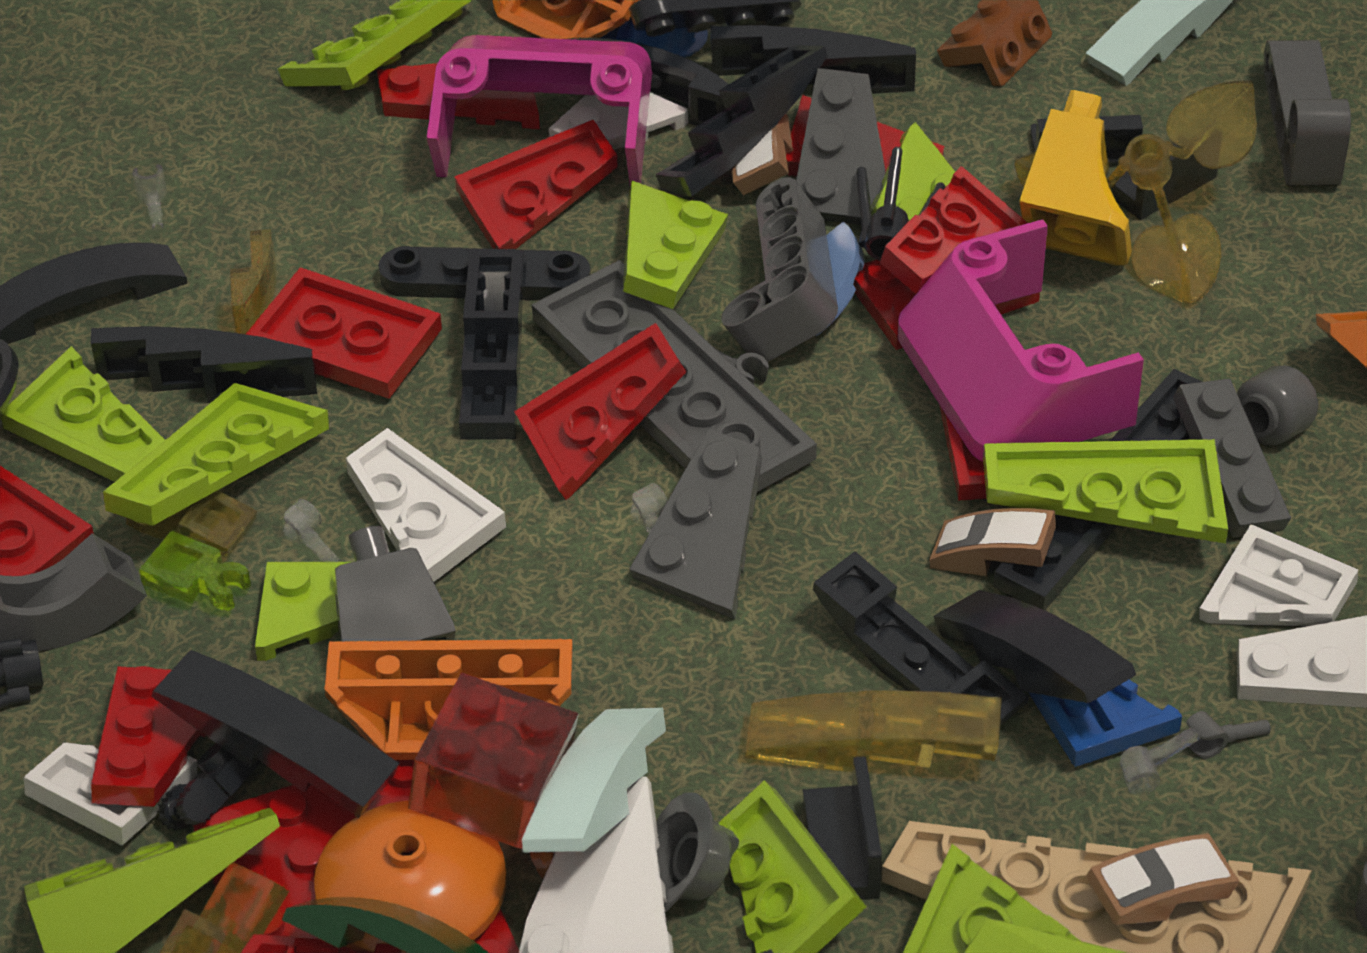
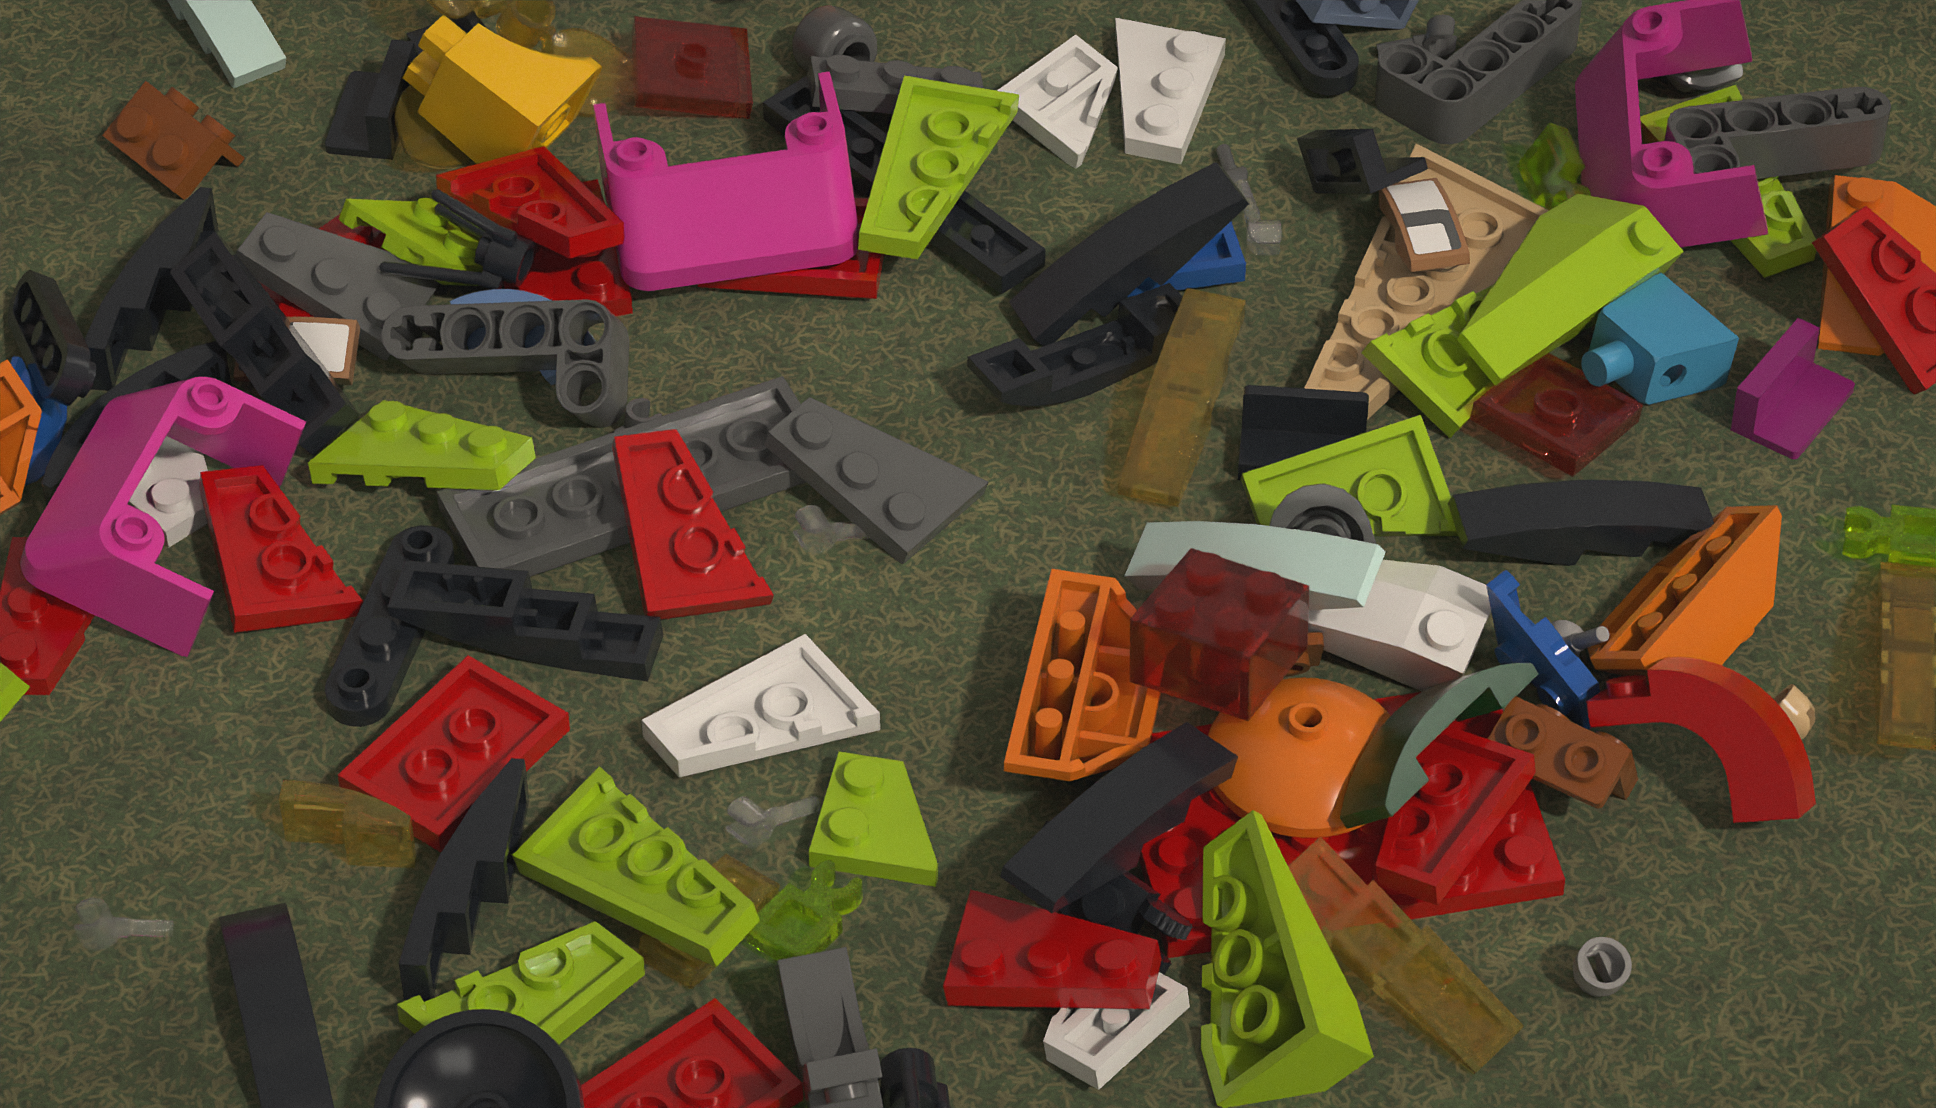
camera: 80 degrees left, 0 degrees up
(388, 594) = (930, 738): dark grey torso -> none
(1002, 535) = (953, 273): slope -> none
(1212, 318) = (691, 67): none -> clear red plate
(1230, 812) = (1352, 162): none -> black panel

